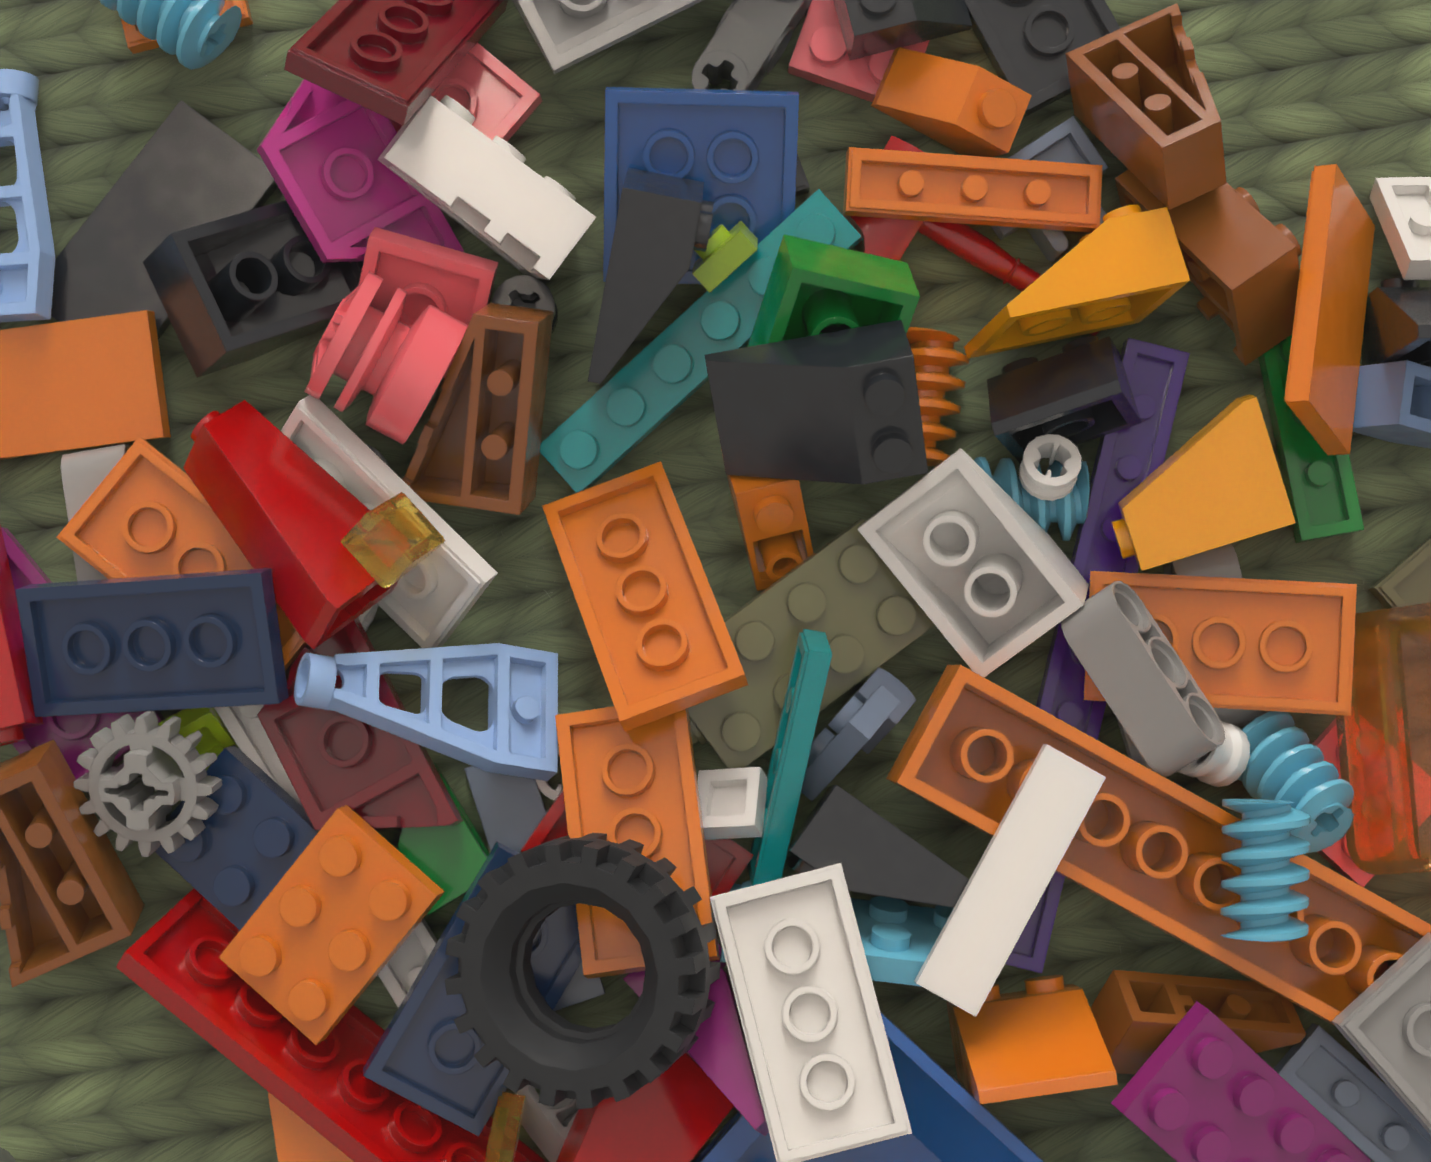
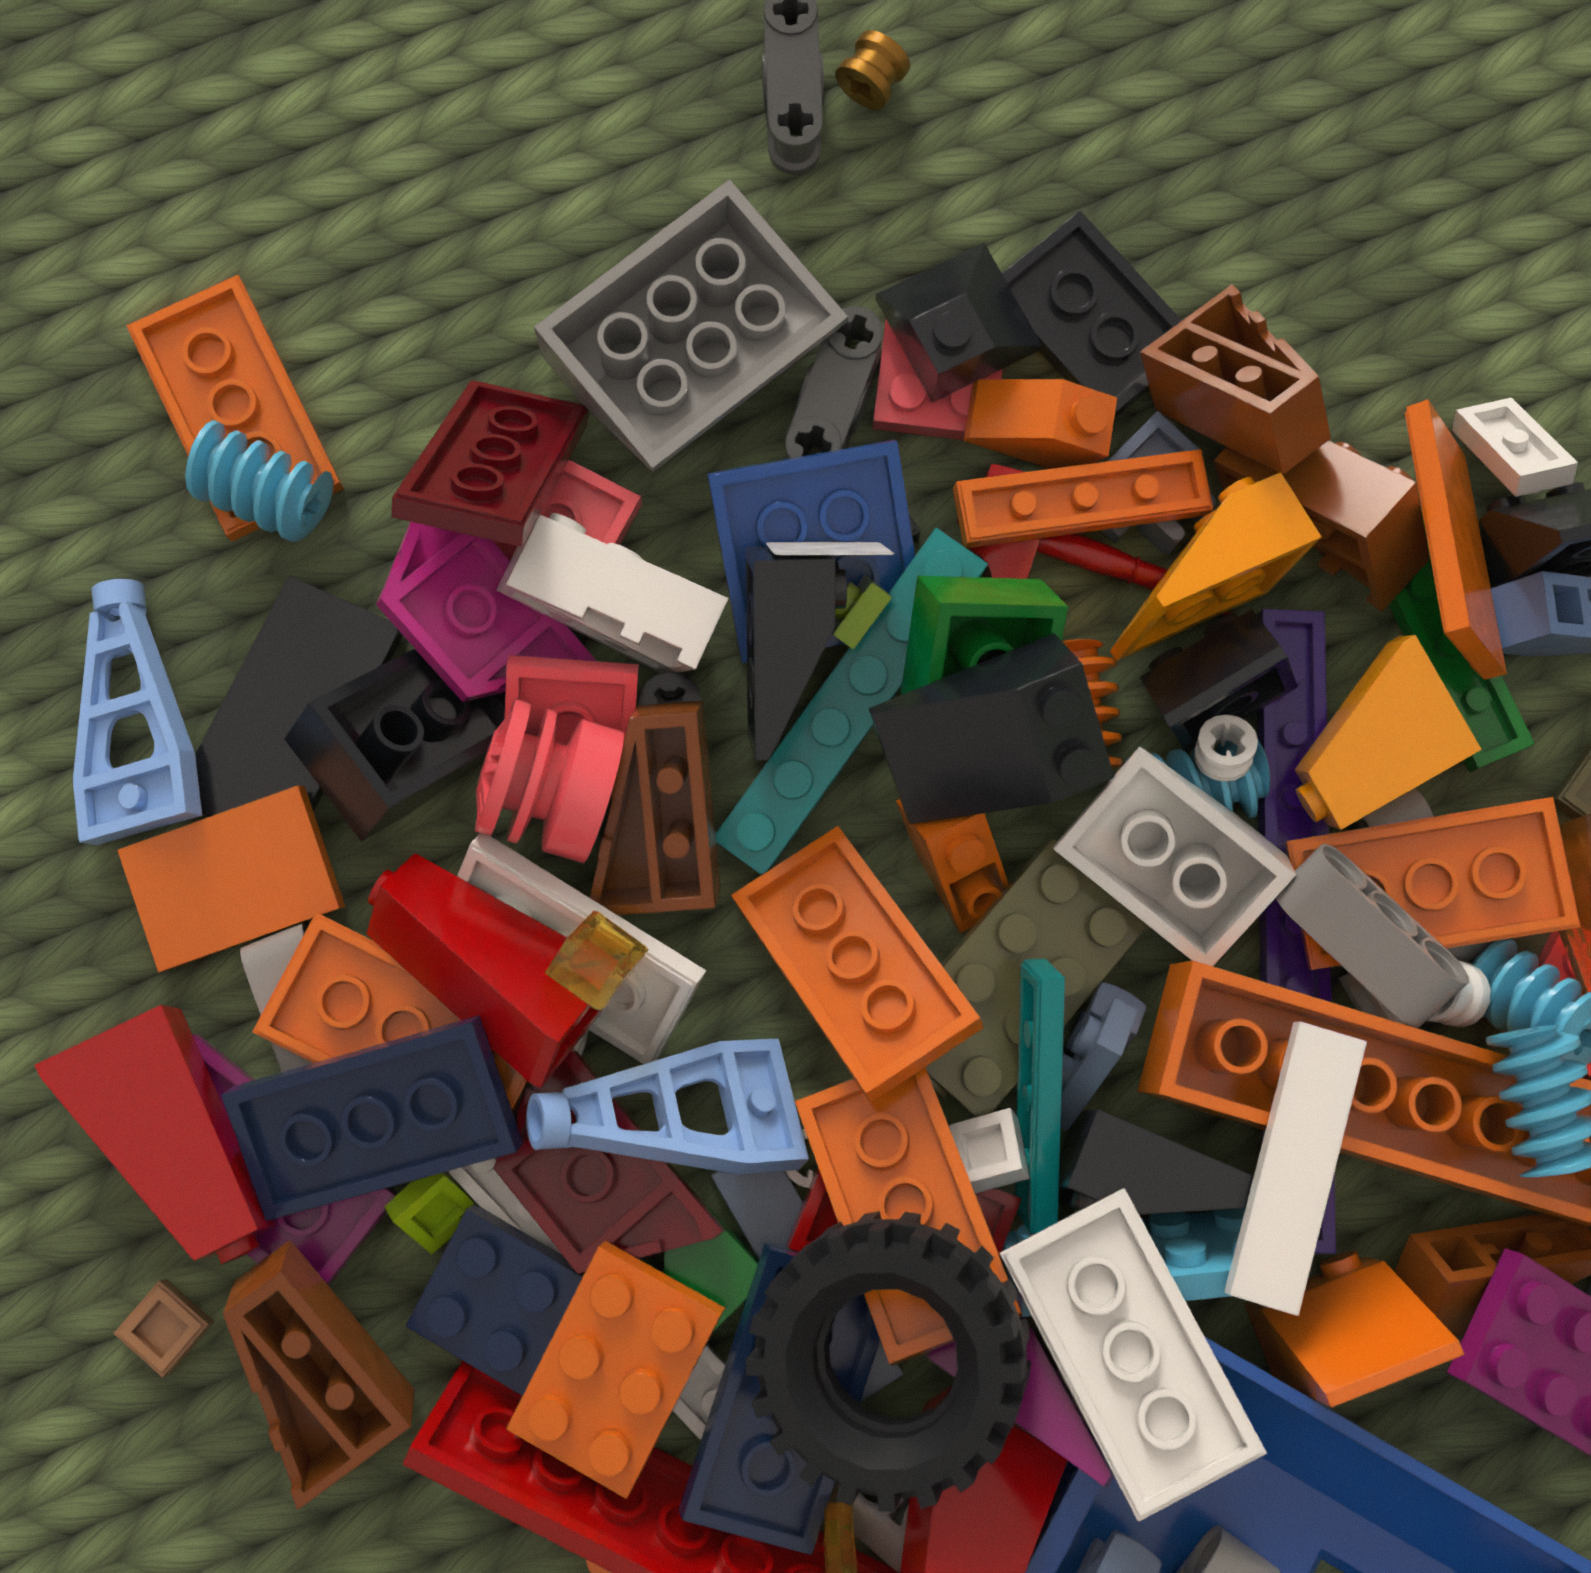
camera: 15 degrees left, 5 degrees down
(166, 764) = (380, 1288): light grey gear -> none
(704, 188) = (828, 548): none -> white sticker

